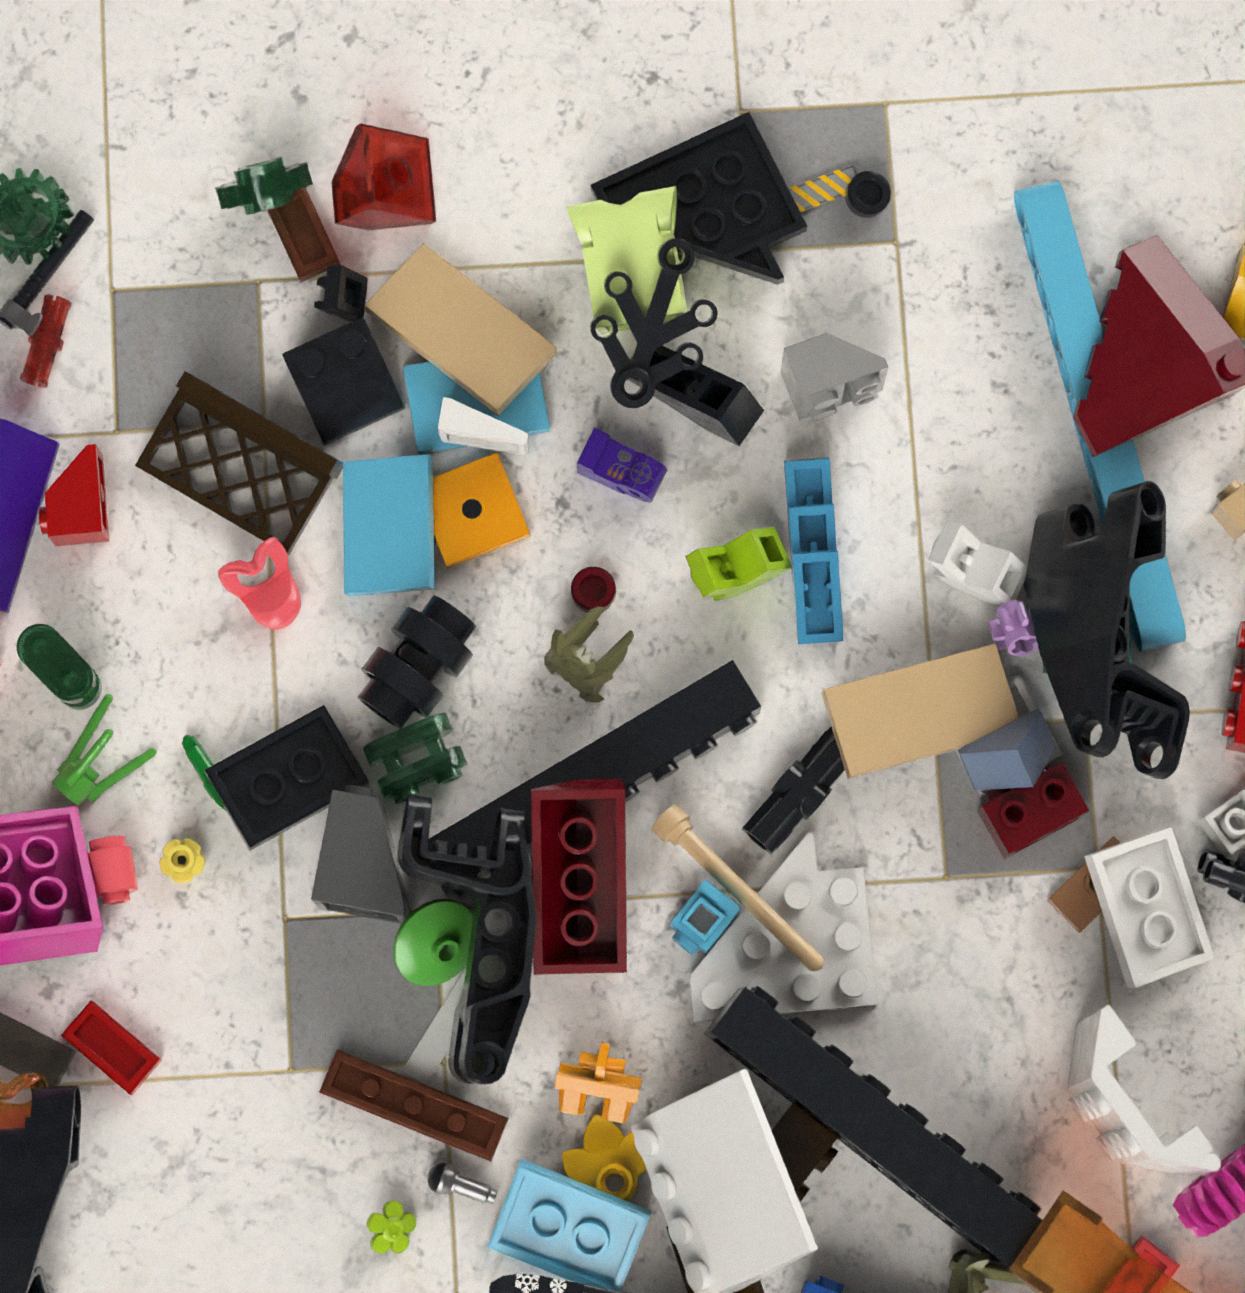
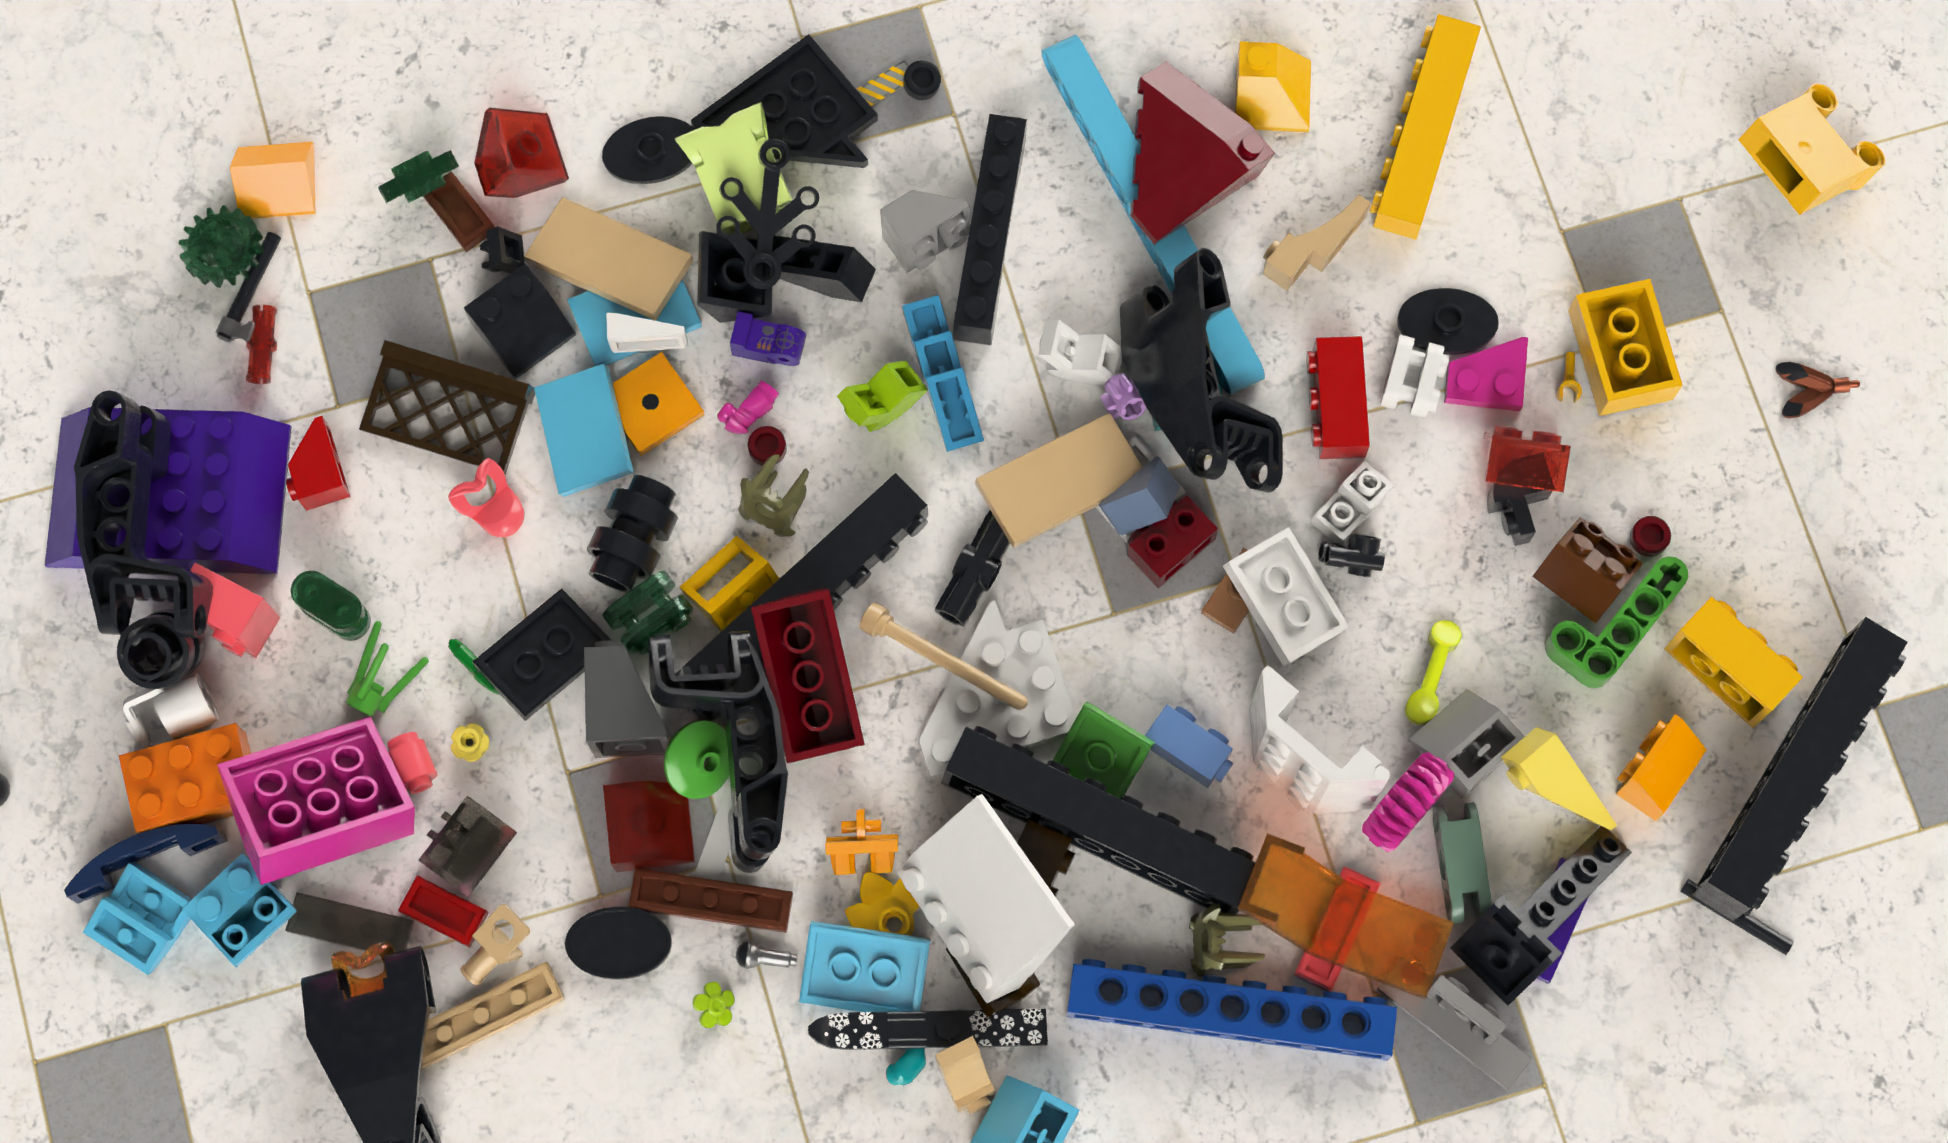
camera: 15 degrees left, 5 degrees down
(101, 148) = (274, 179): none -> light orange slope
(140, 1176) = (490, 1013): none -> tan tile
(152, 981) = (467, 845): none -> clear smoke brick
(160, 1104) = (495, 945): none -> tan bracket
(299, 1130) = (618, 943): none -> black piece
(361, 1004) = (647, 825): none -> clear red slope
(524, 758) = (739, 592): none -> yellow tile
(531, 207) = (647, 150): none -> black piece
(583, 389) = (722, 282): none -> black slope
(588, 542) = (755, 406): none -> dark pink arm
(704, 919) = (920, 690): medium azure window -> none
(895, 1042) = (1103, 750): none -> bright green tile
(906, 392) = (989, 229): none -> black arch
(997, 1056) = (1189, 746): none -> medium blue brick

